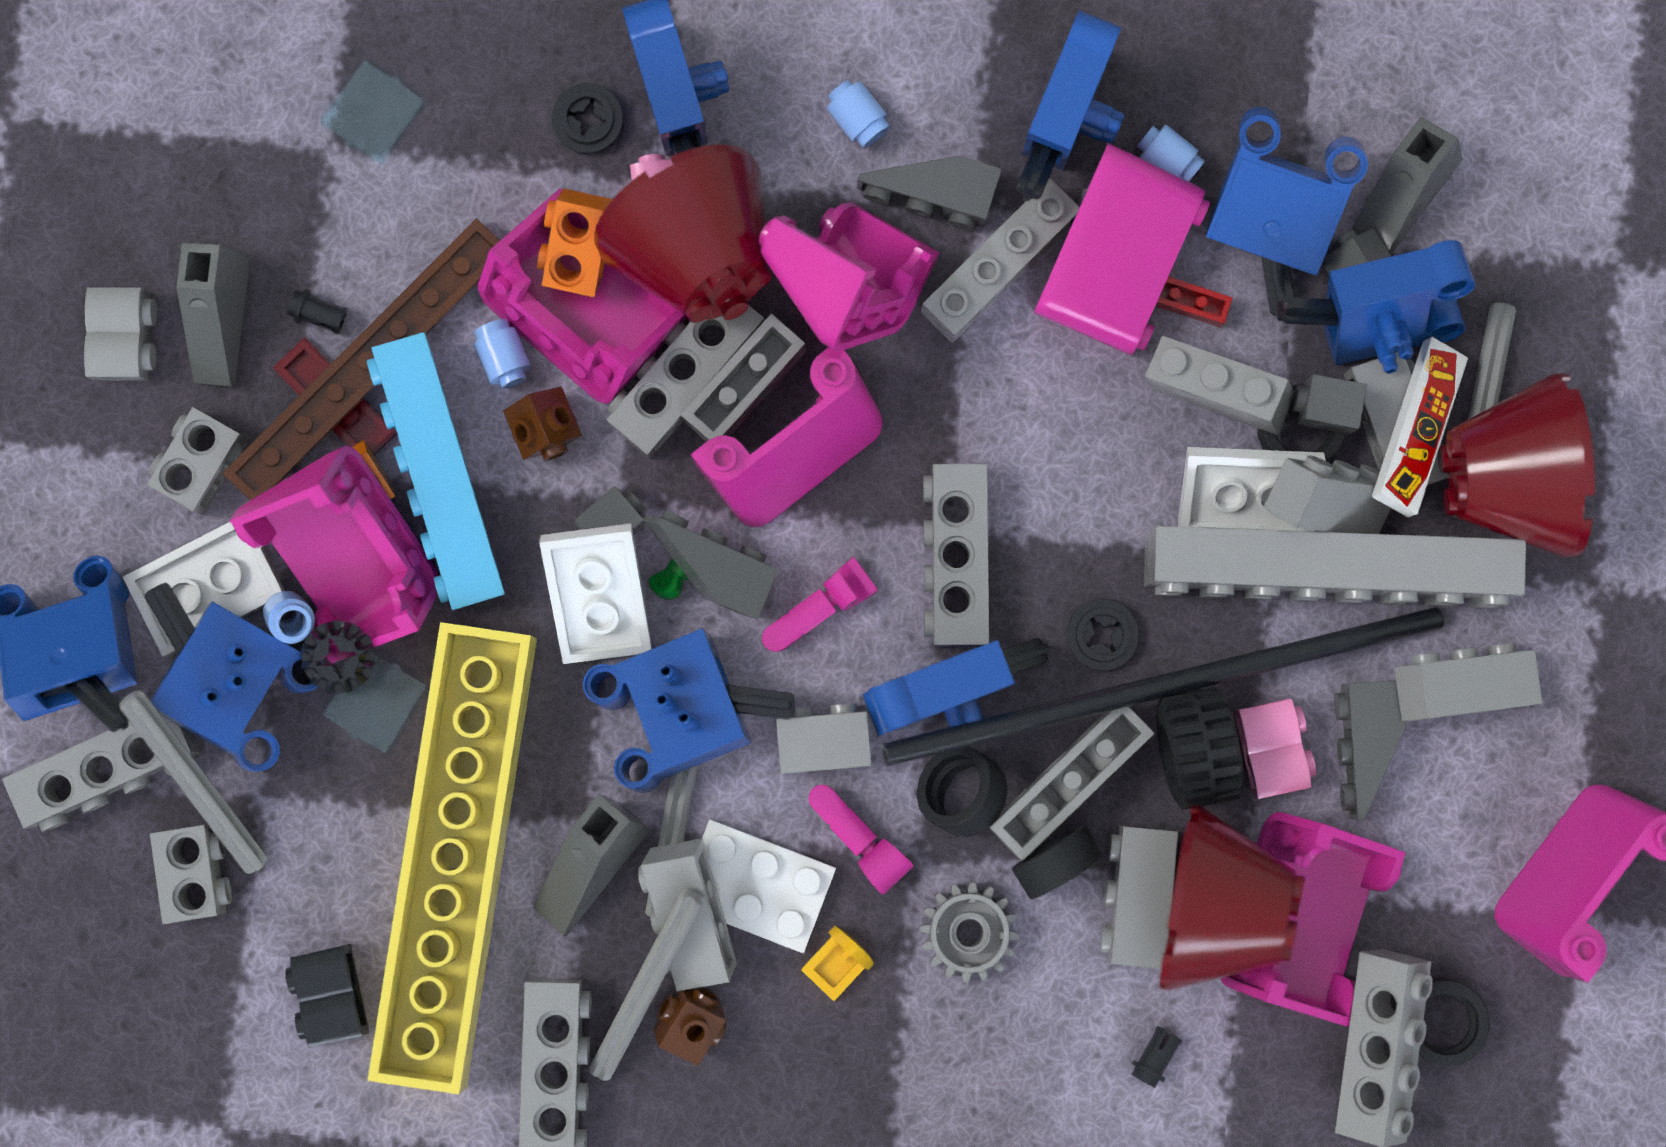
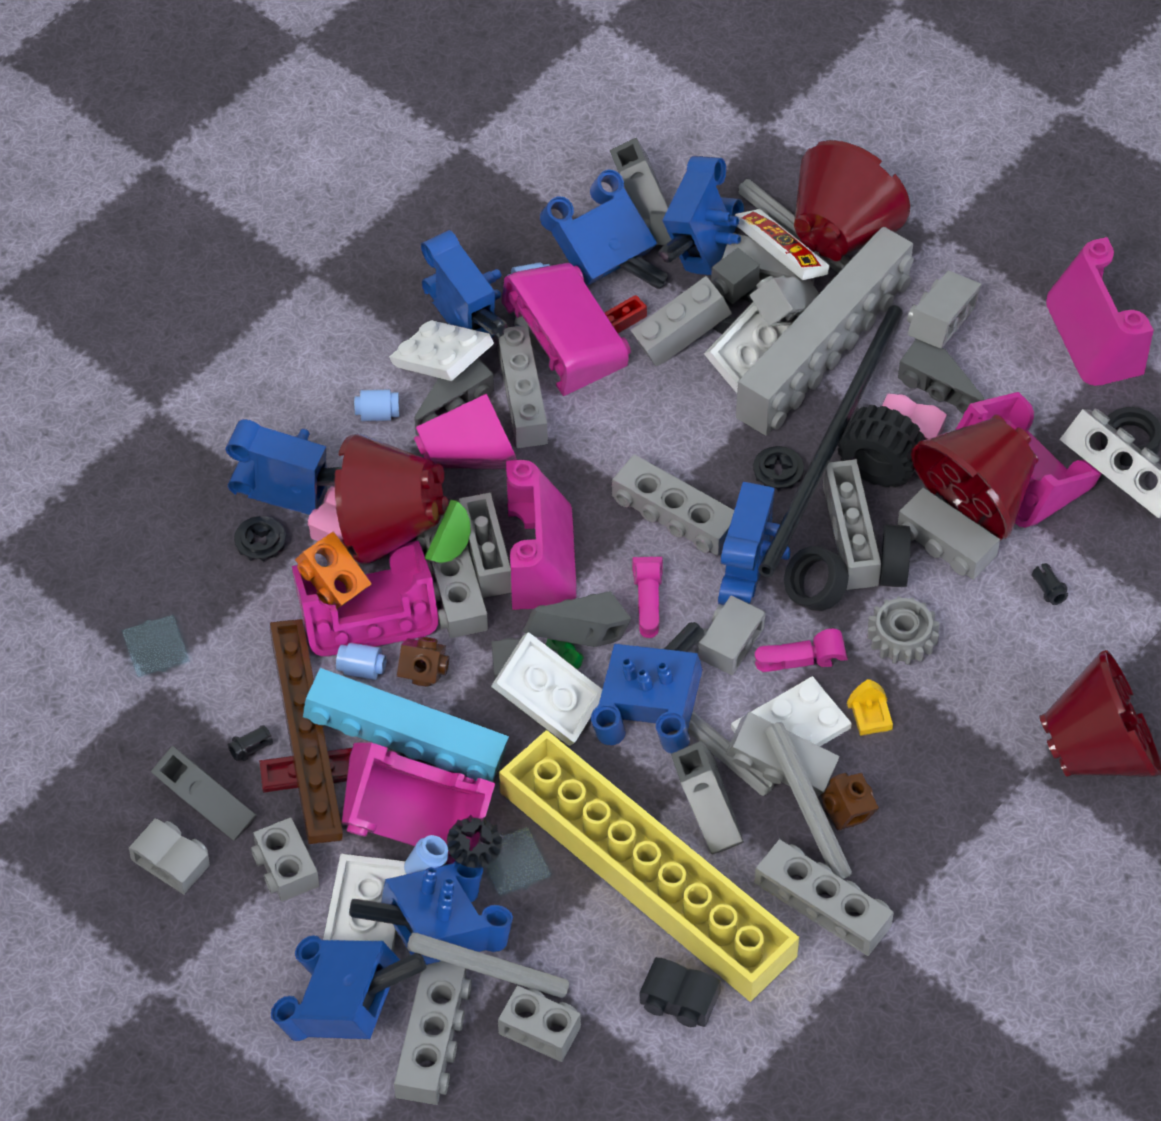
camera: 55 degrees left, 30 degrees down
(705, 345) = (451, 534): none -> bright green tile
(979, 133) = (441, 350): none -> white plate

